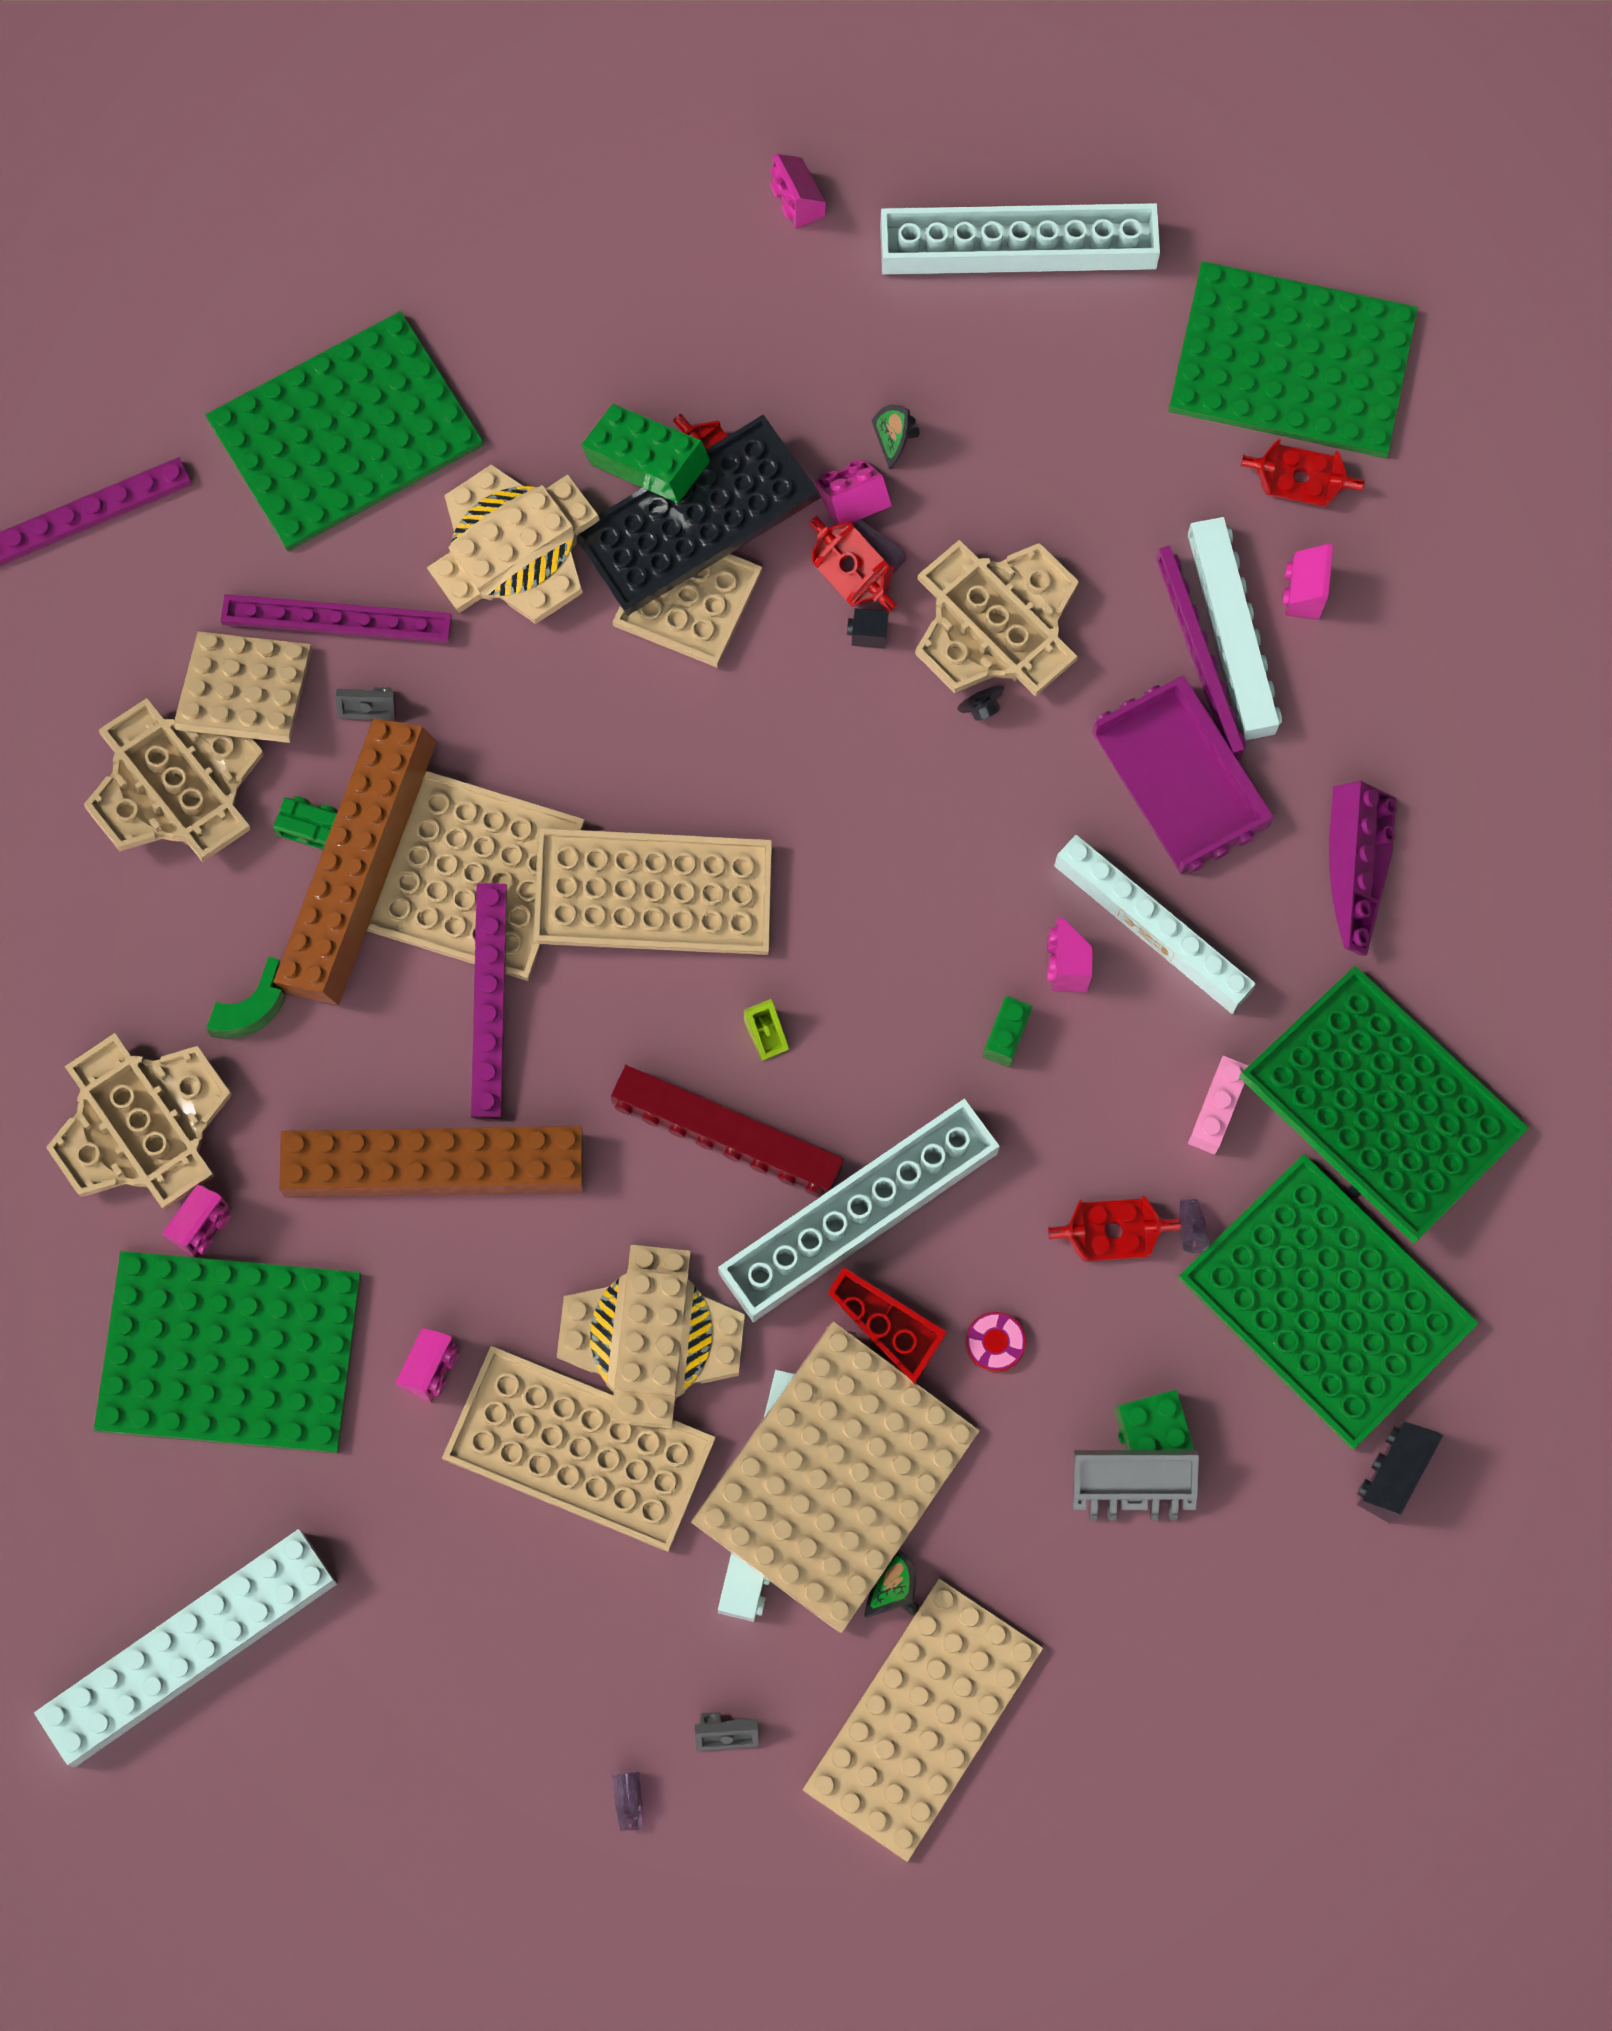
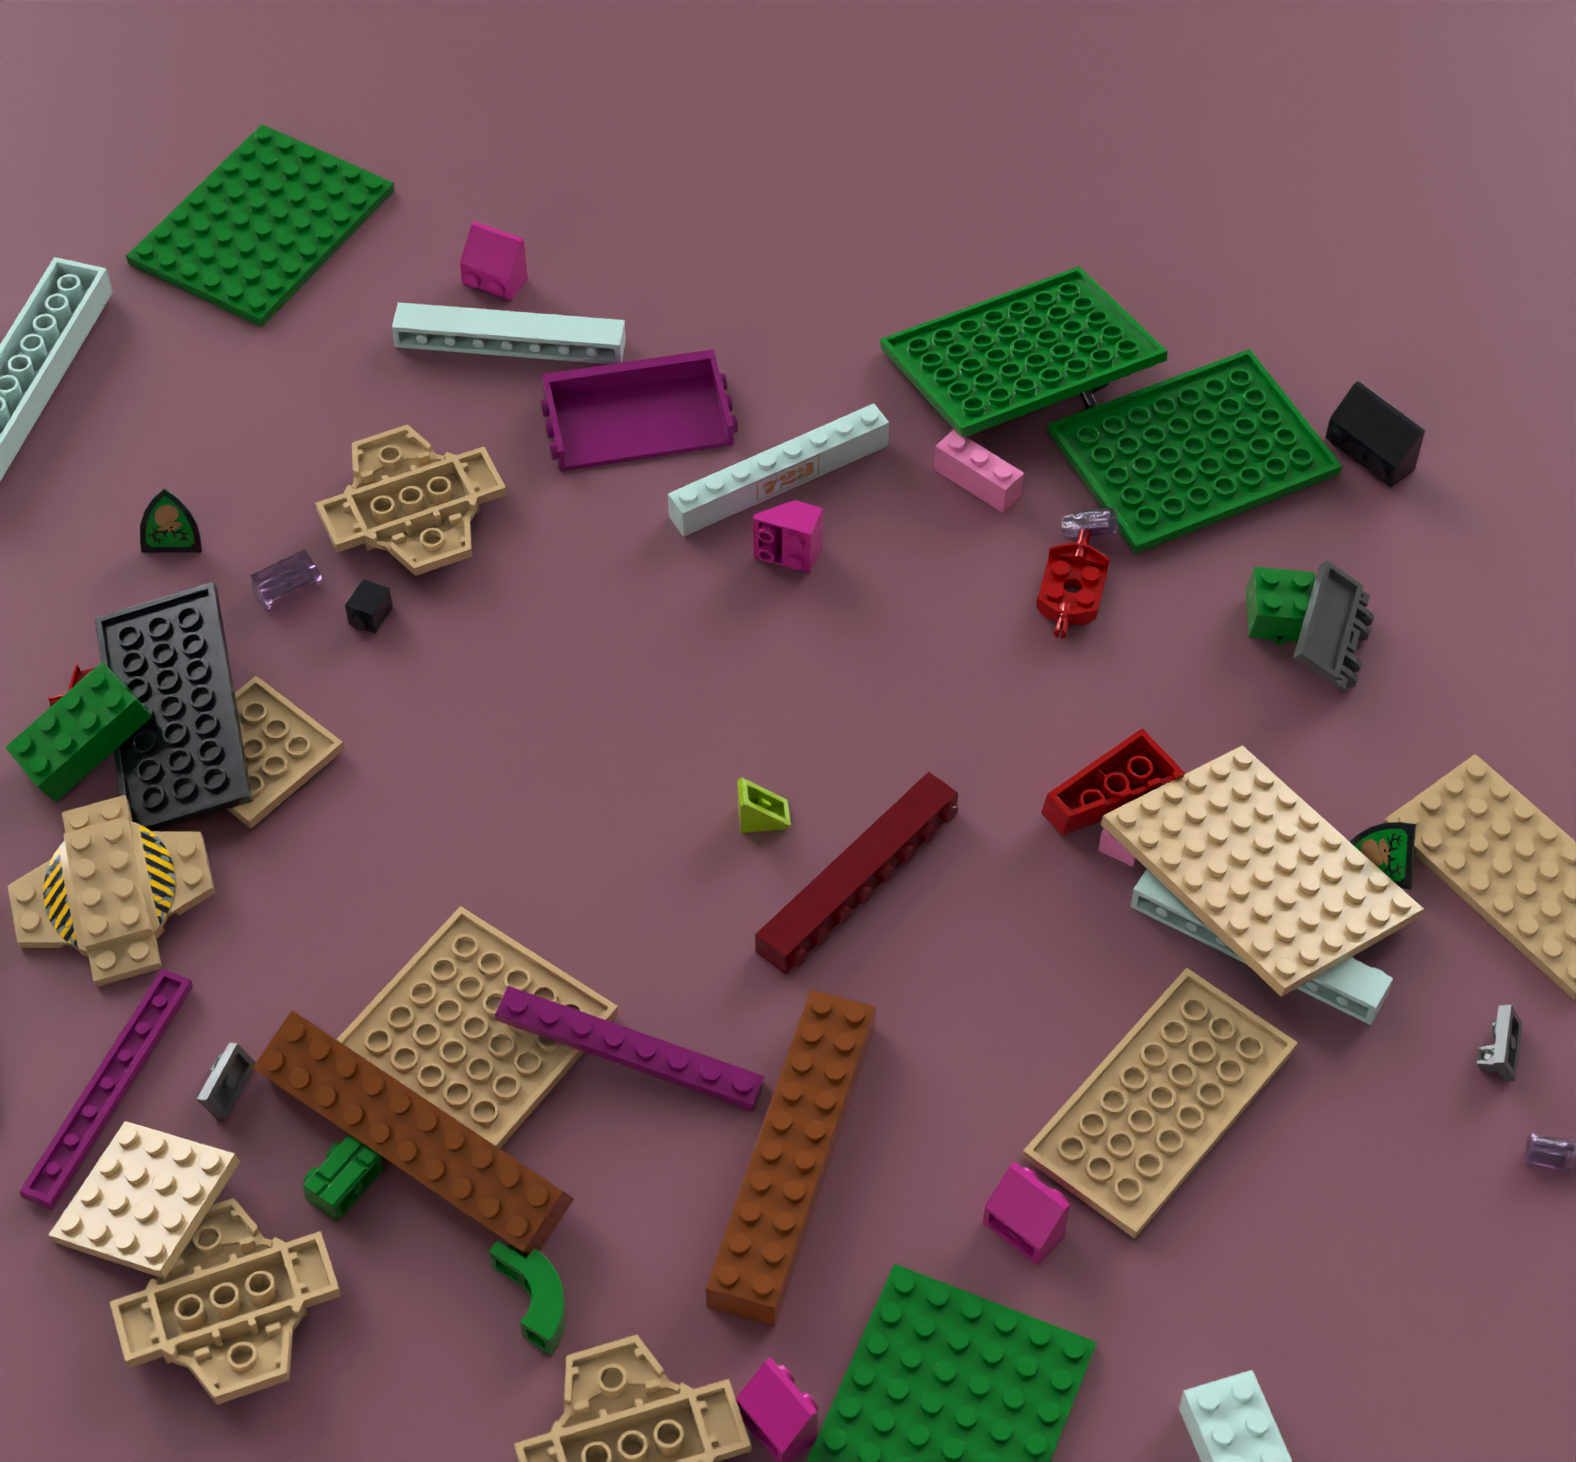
camera: 70 degrees left, 20 degrees down
(650, 1336) = (1058, 998): tan plate -> none
(652, 891) = (569, 866): tan plate -> none
(853, 492) = (224, 566): dark pink slope -> none
(858, 1210) = (988, 779): light aqua brick -> none
(870, 574) = (273, 612): red plate -> none
(983, 703) = (492, 536): black piece -> none
(995, 1342) = (1155, 709): tile -> none
(1007, 1031) = (843, 609): green brick -> none
(1197, 644) = (505, 362): magenta plate -> none
(1324, 473) = (388, 230): red plate -> none
(1359, 858) = (774, 306): magenta wedge -> none

